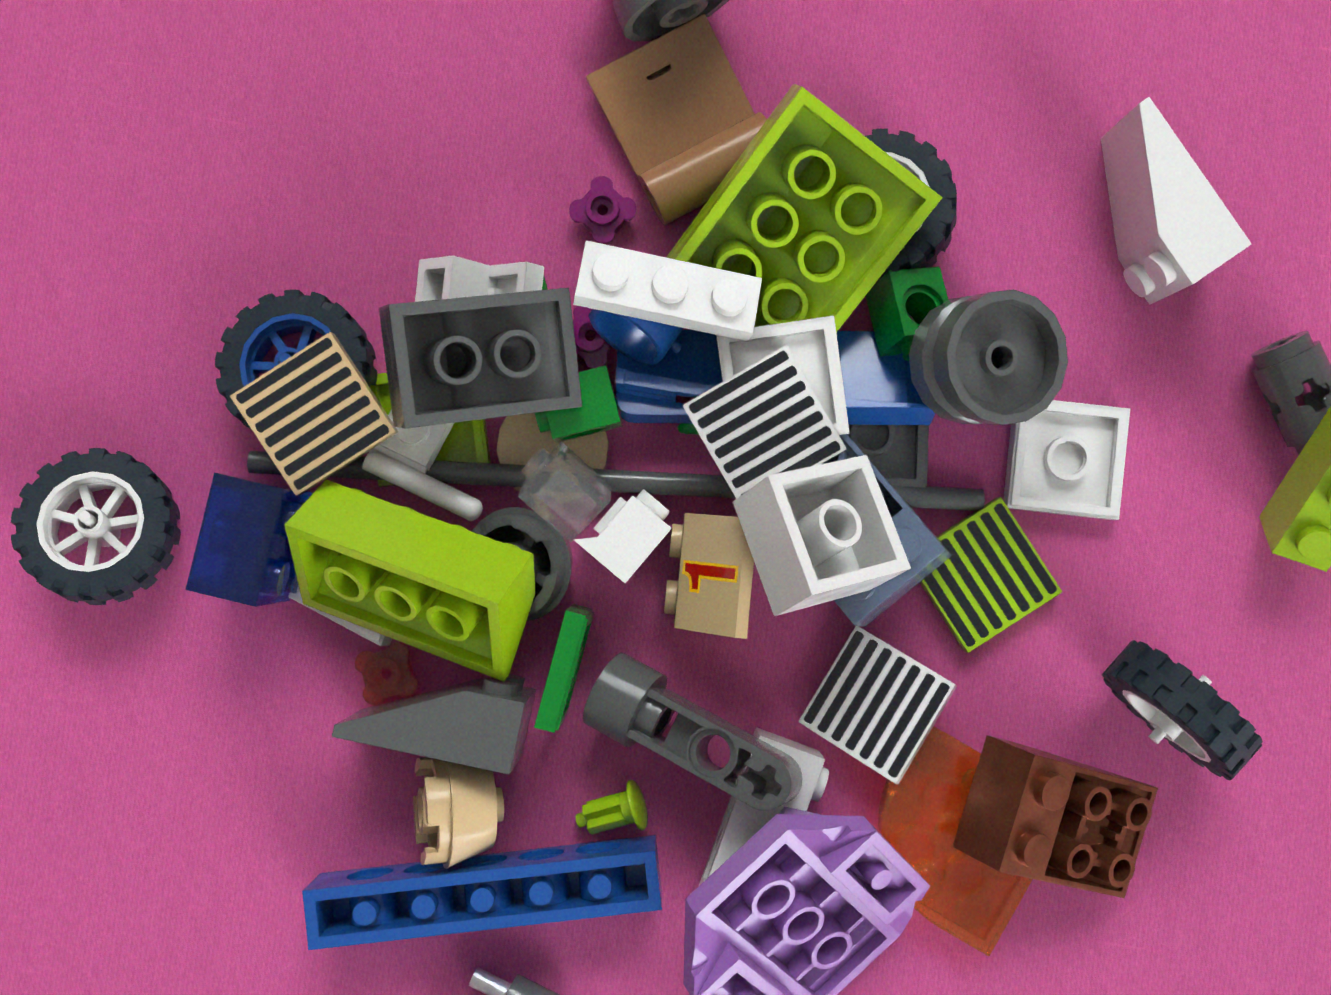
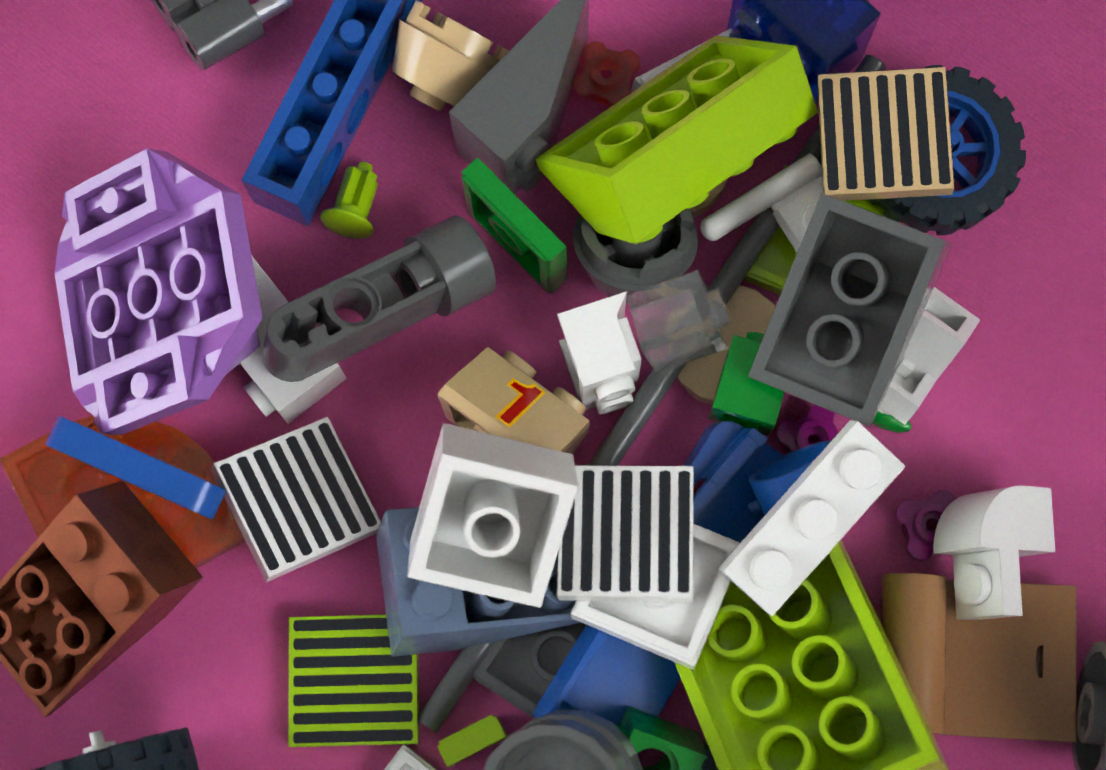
camera: 125 degrees right, 10 degrees down
(591, 161) = (986, 538): none -> white brick
(937, 843) = (136, 467): none -> blue beam
(975, 456) = (472, 740): none -> lime tile

